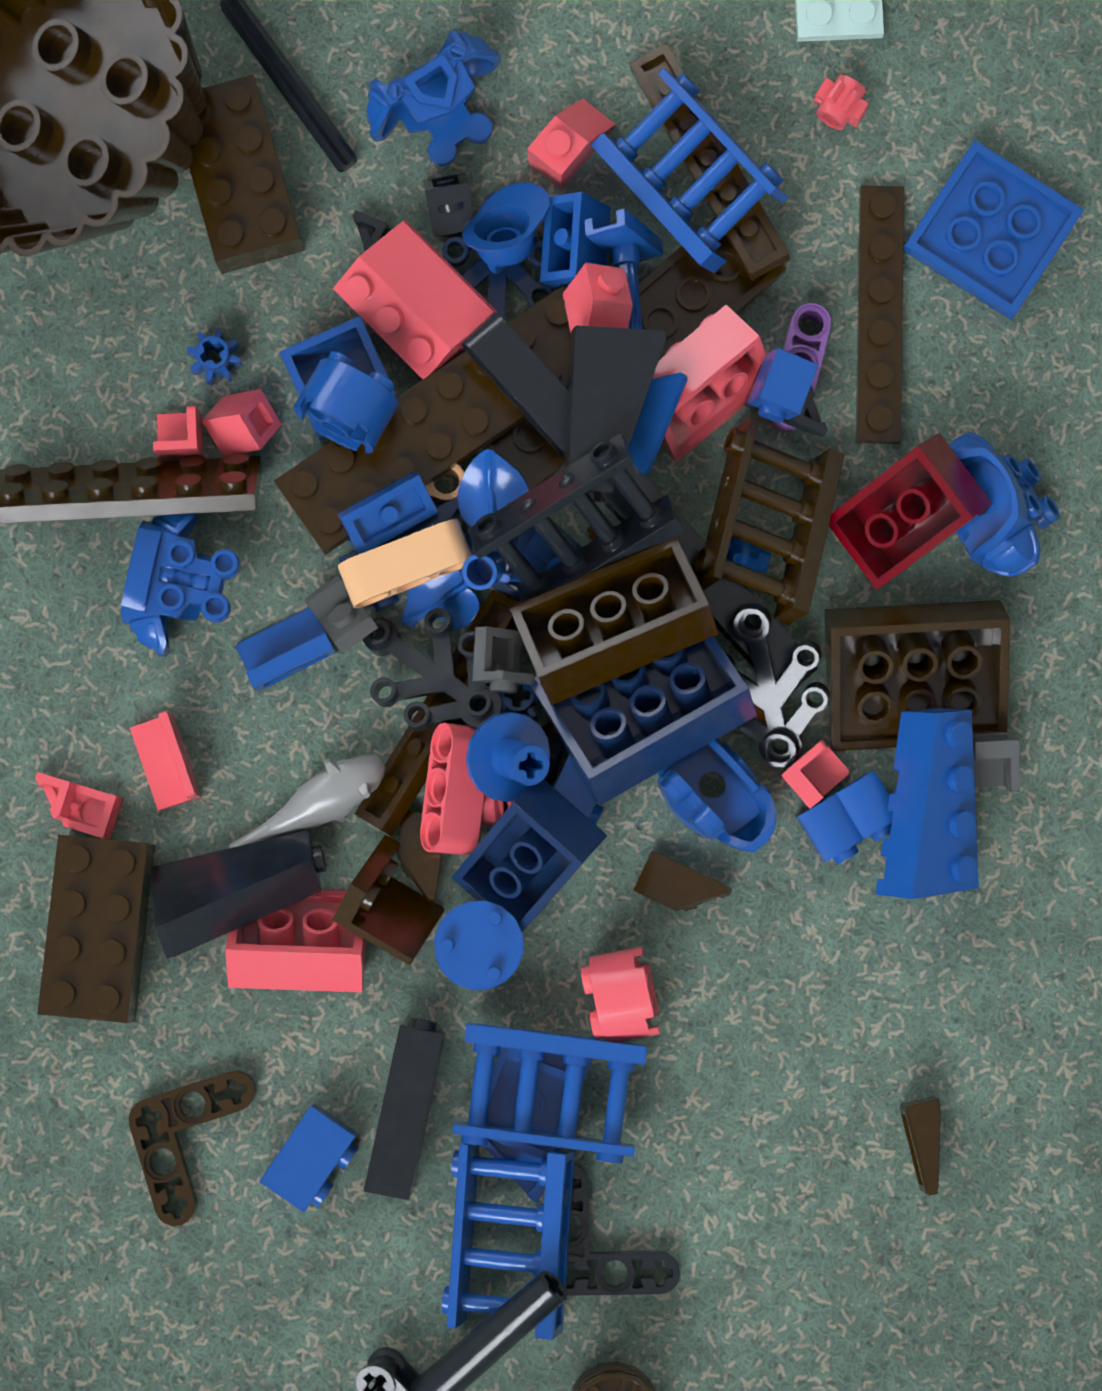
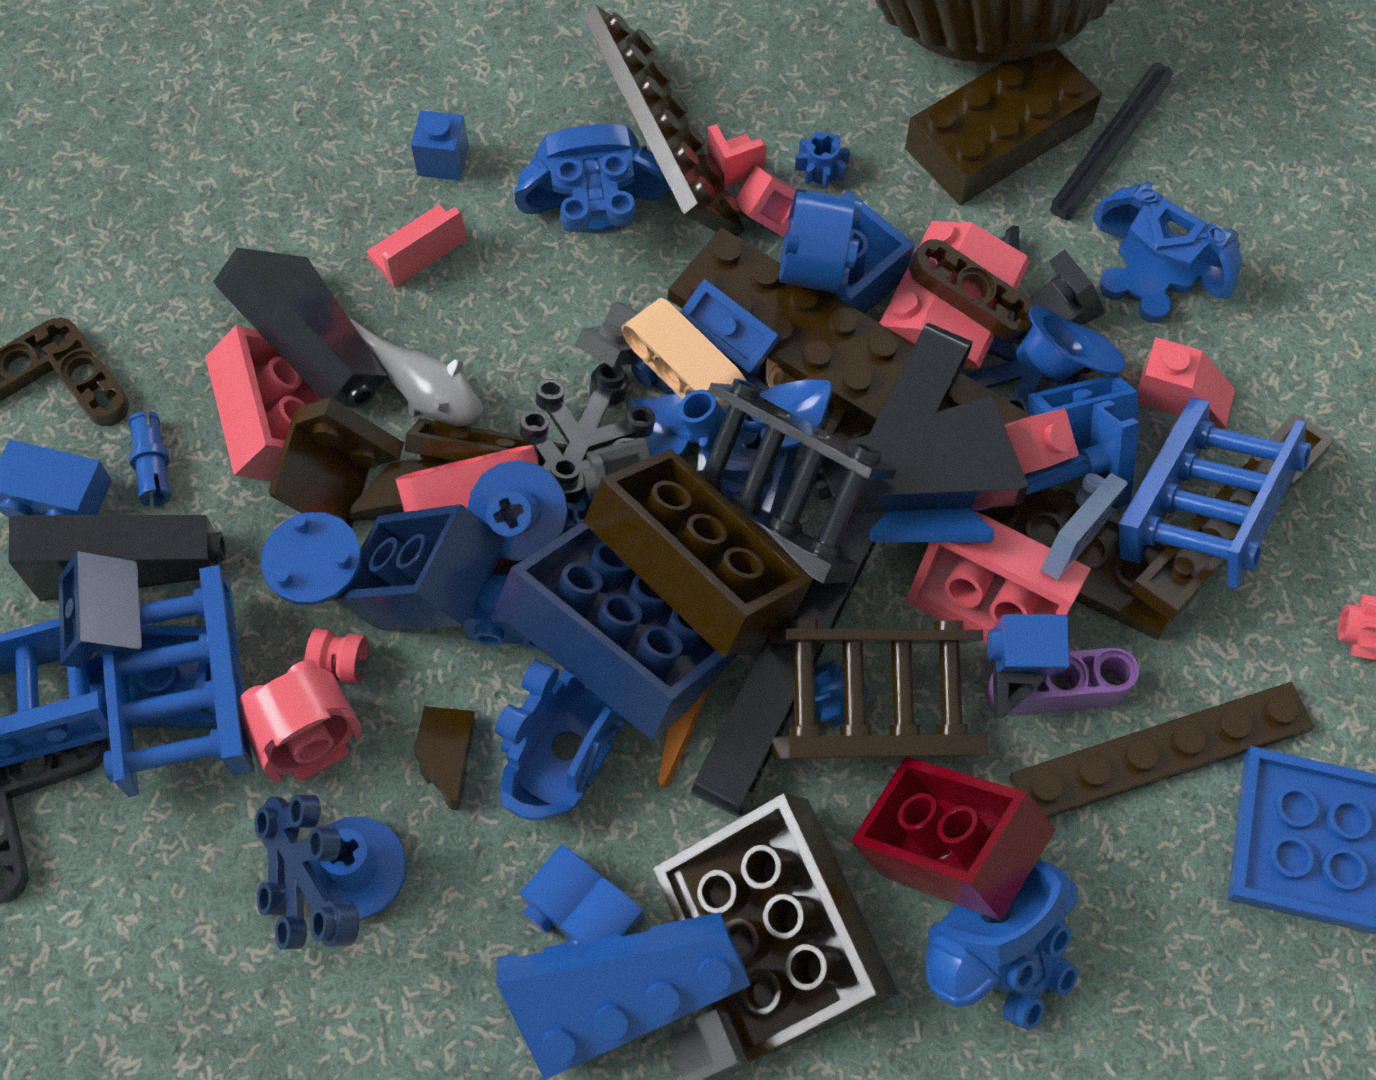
camera: 70 degrees right, 20 degrees down
(67, 706) = (440, 145): none -> blue brick
(81, 806) = (350, 192): coral slope -> none
(96, 929) = (194, 231): dark brown brick -> none
(284, 649) = (557, 305): blue panel -> none
(310, 1064) = (149, 458): none -> blue pin
(422, 304) = (951, 292): none -> dark brown beam
(470, 1136) = (98, 607): none -> panel
(564, 950) = (337, 653): none -> coral wheel
(665, 266) = (1085, 524): none -> sand blue hinge
(698, 1036) = (278, 827): none -> dark blue plant
(752, 987) = (367, 868): none -> blue piece
(772, 694) = (690, 762): black plant -> none
(815, 773) = (619, 851): coral panel -> none

